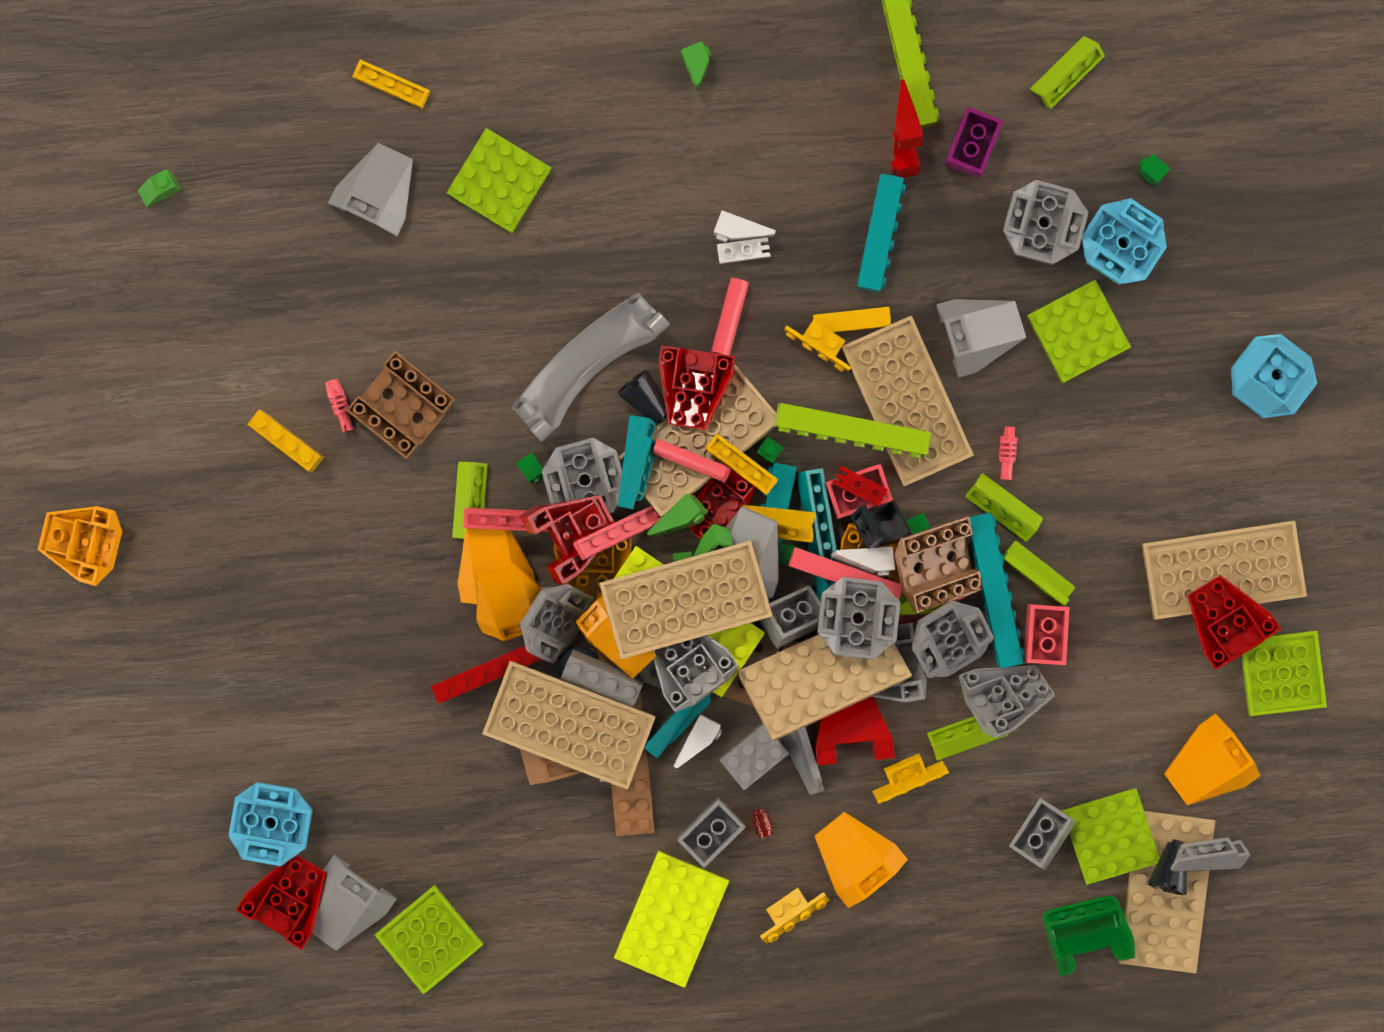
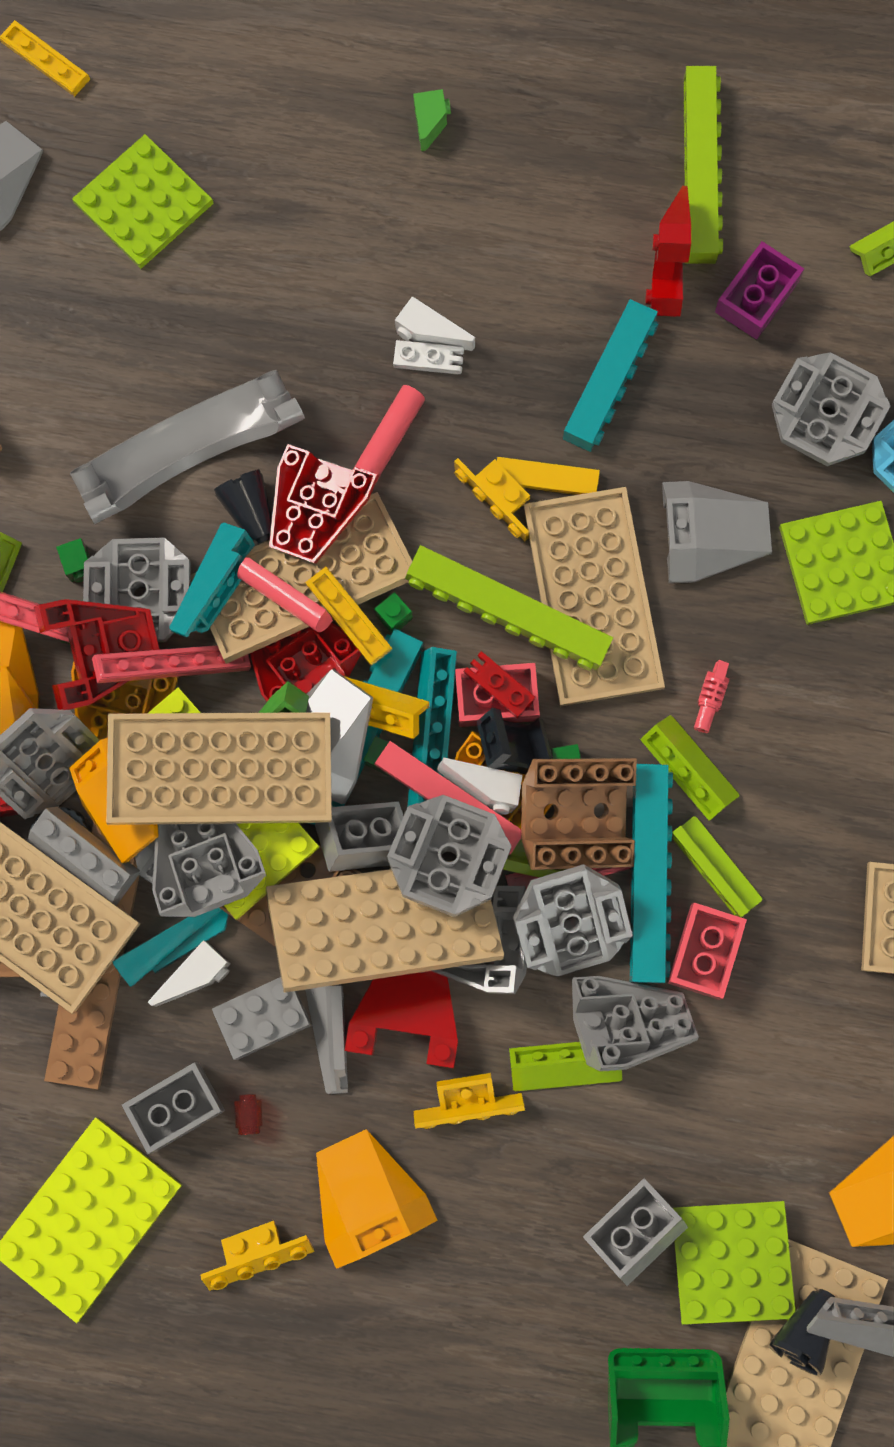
camera: 20 degrees right, 10 degrees down
(683, 514) = (249, 667): bright green slope -> none

